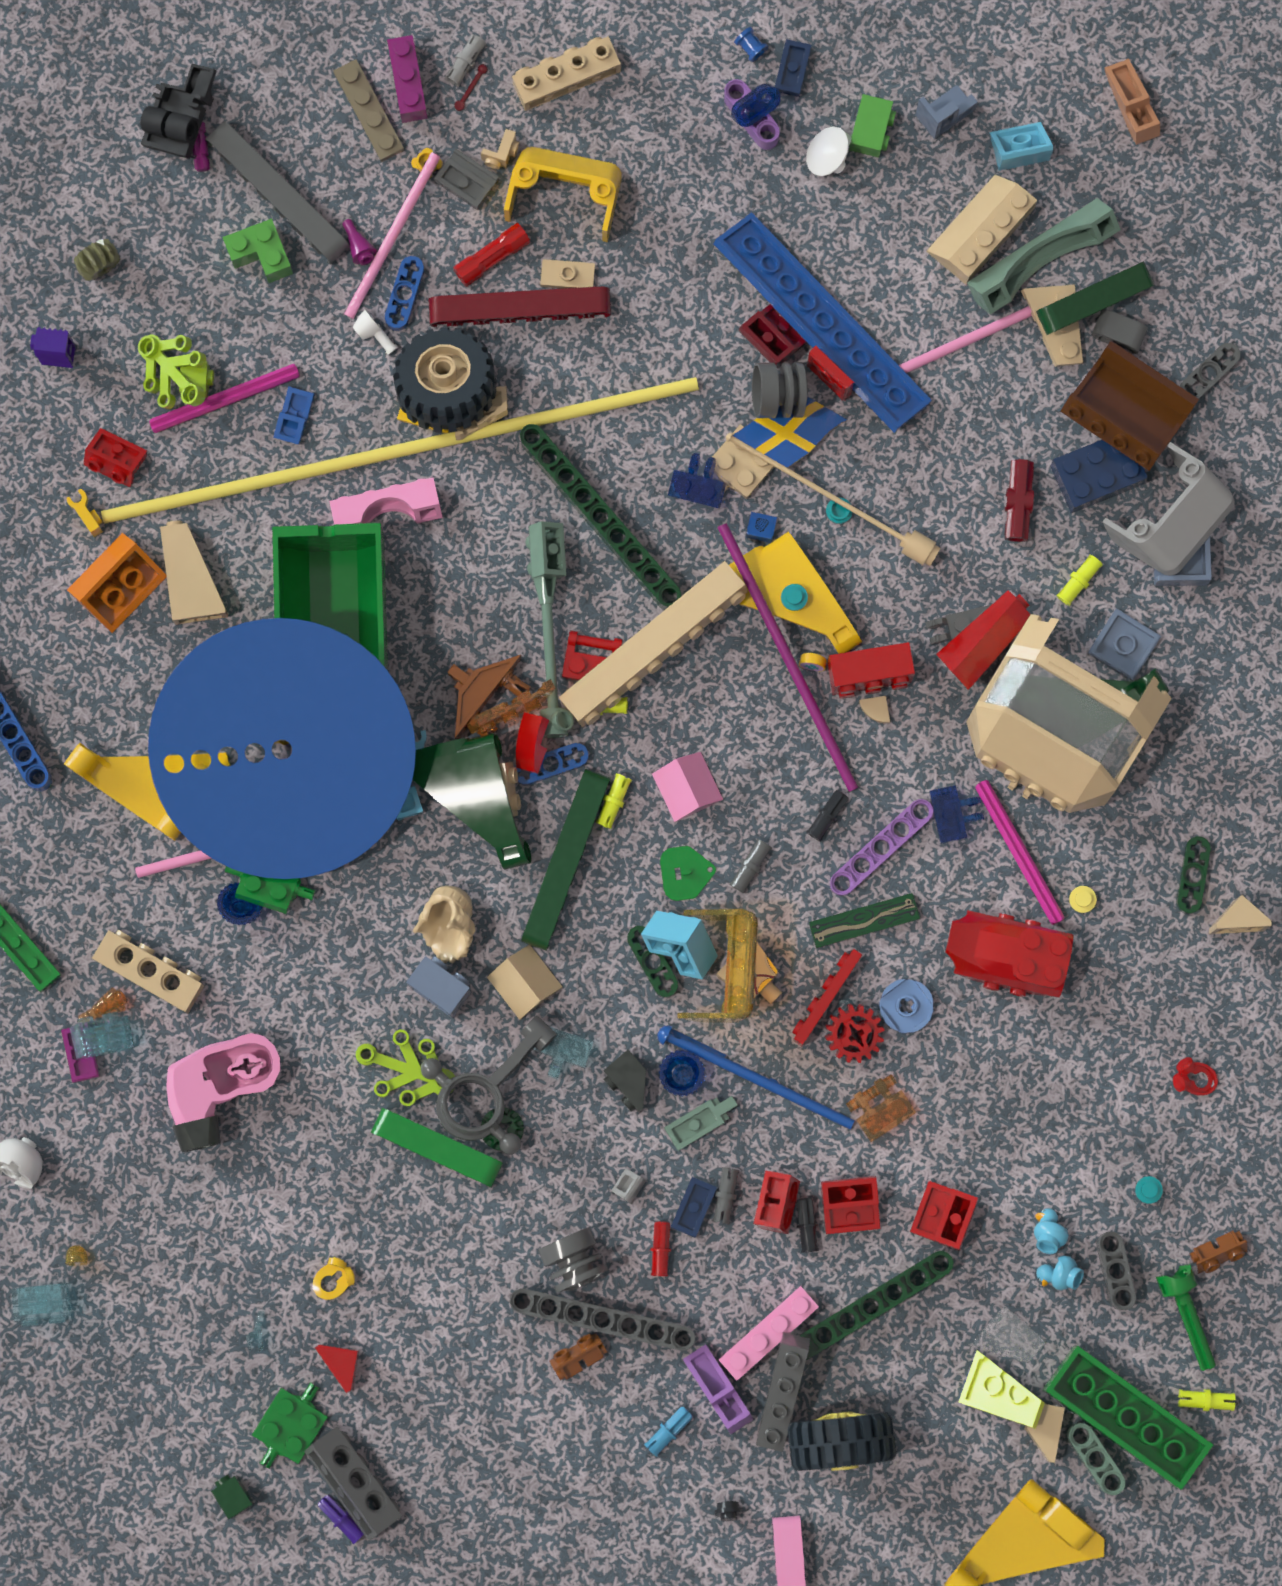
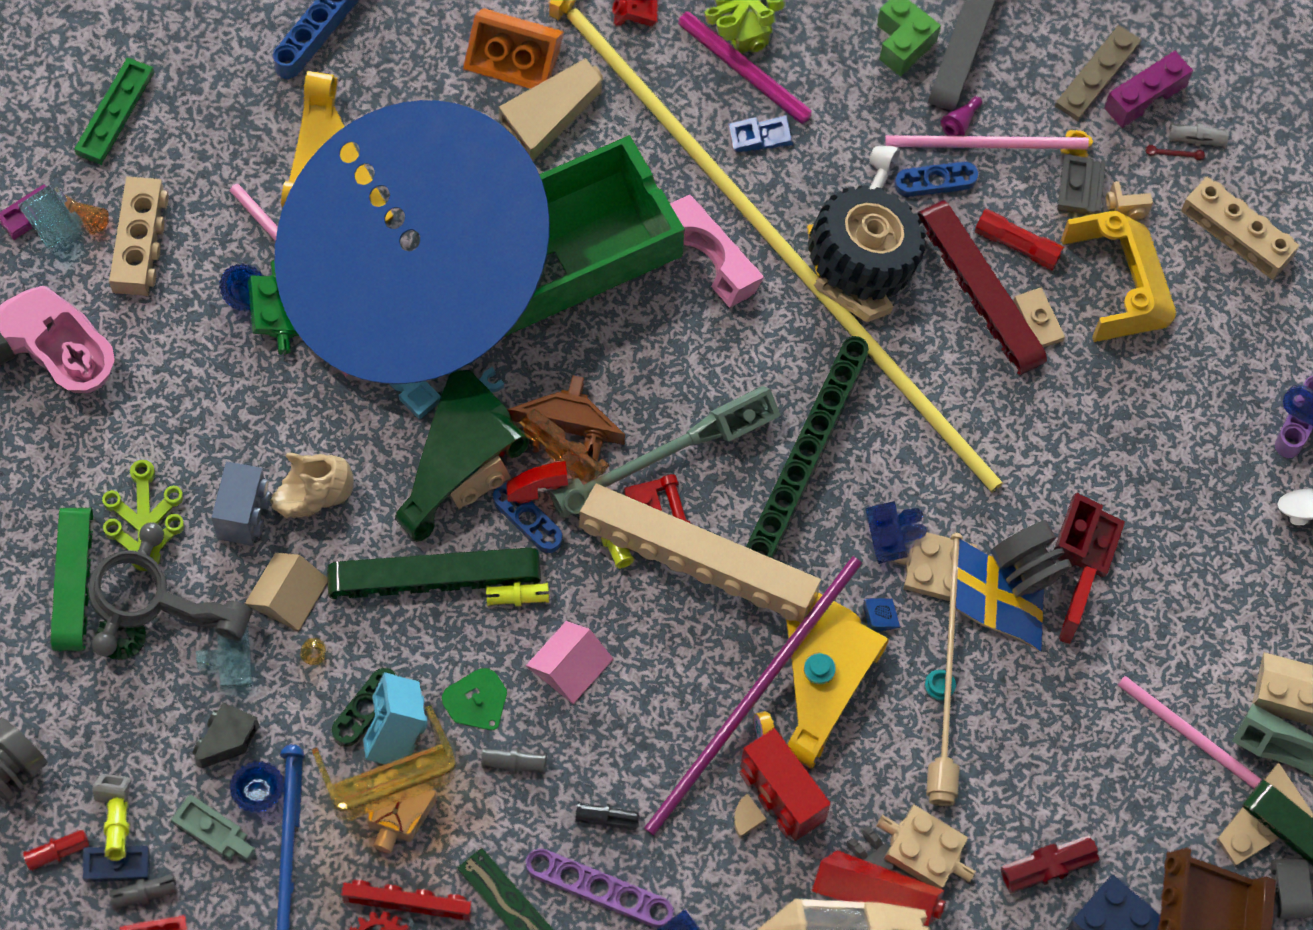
camera: 60 degrees right, 15 degrees down
(583, 979) = (306, 651): none -> clear yellow hinge
(667, 1195) = (116, 829): none -> neon yellow pin
(822, 321) = (1127, 580): blue plate -> none
(964, 587) = (926, 847): none -> tan plate

